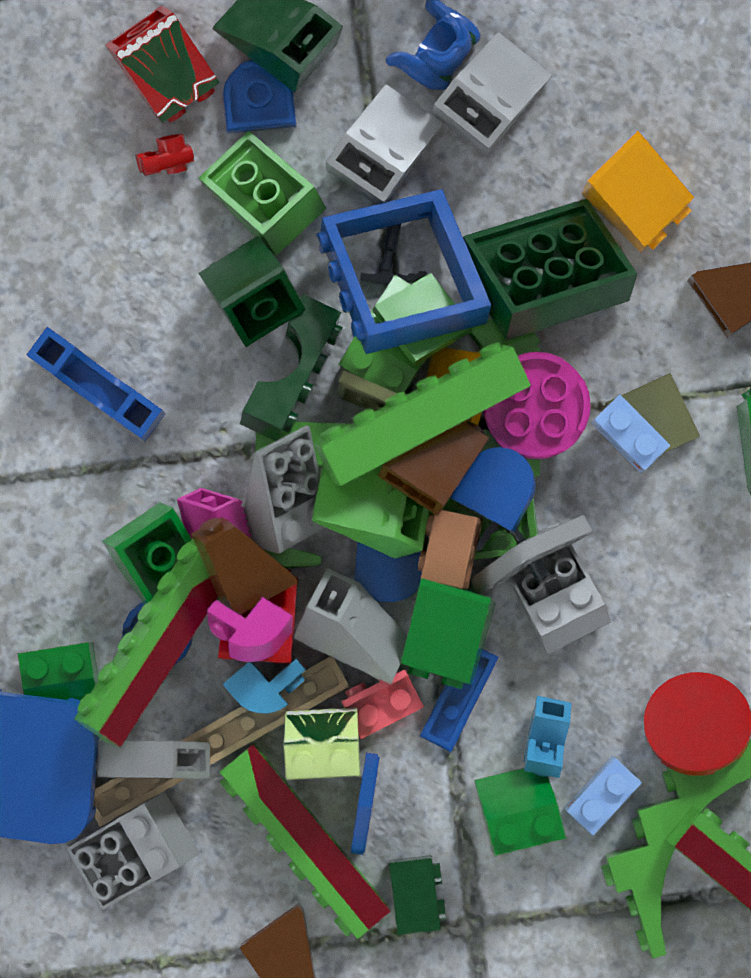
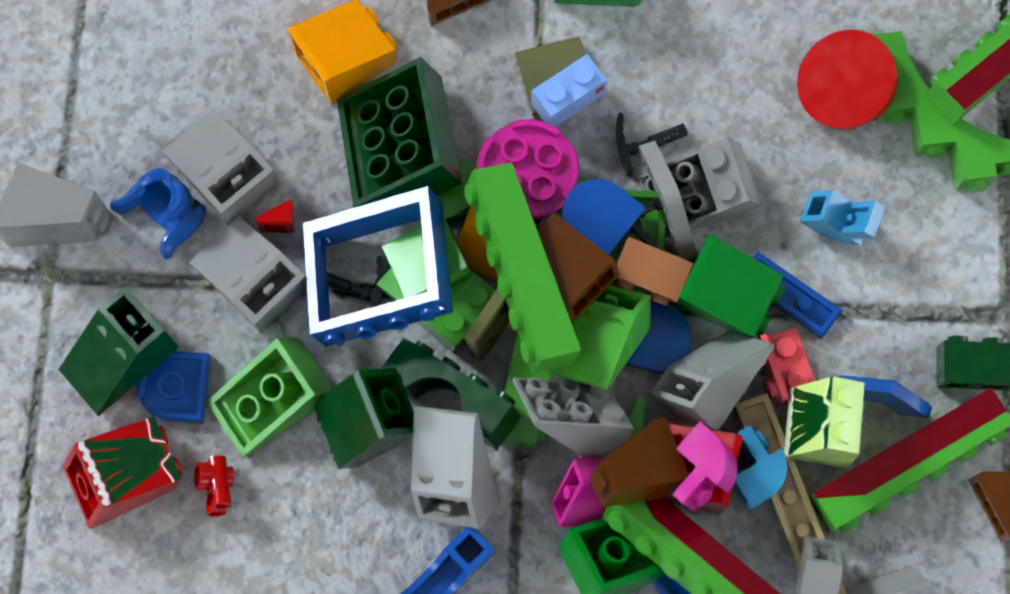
camera: 80 degrees left, 10 degrees down
(210, 382) = (451, 468): none -> light grey slope
(445, 165) = (278, 219): none -> red slope
(519, 811) = (911, 251): green slope -> none
(599, 532) = (661, 138): none -> black piece
(602, 795) = (902, 177): light blue brick -> none

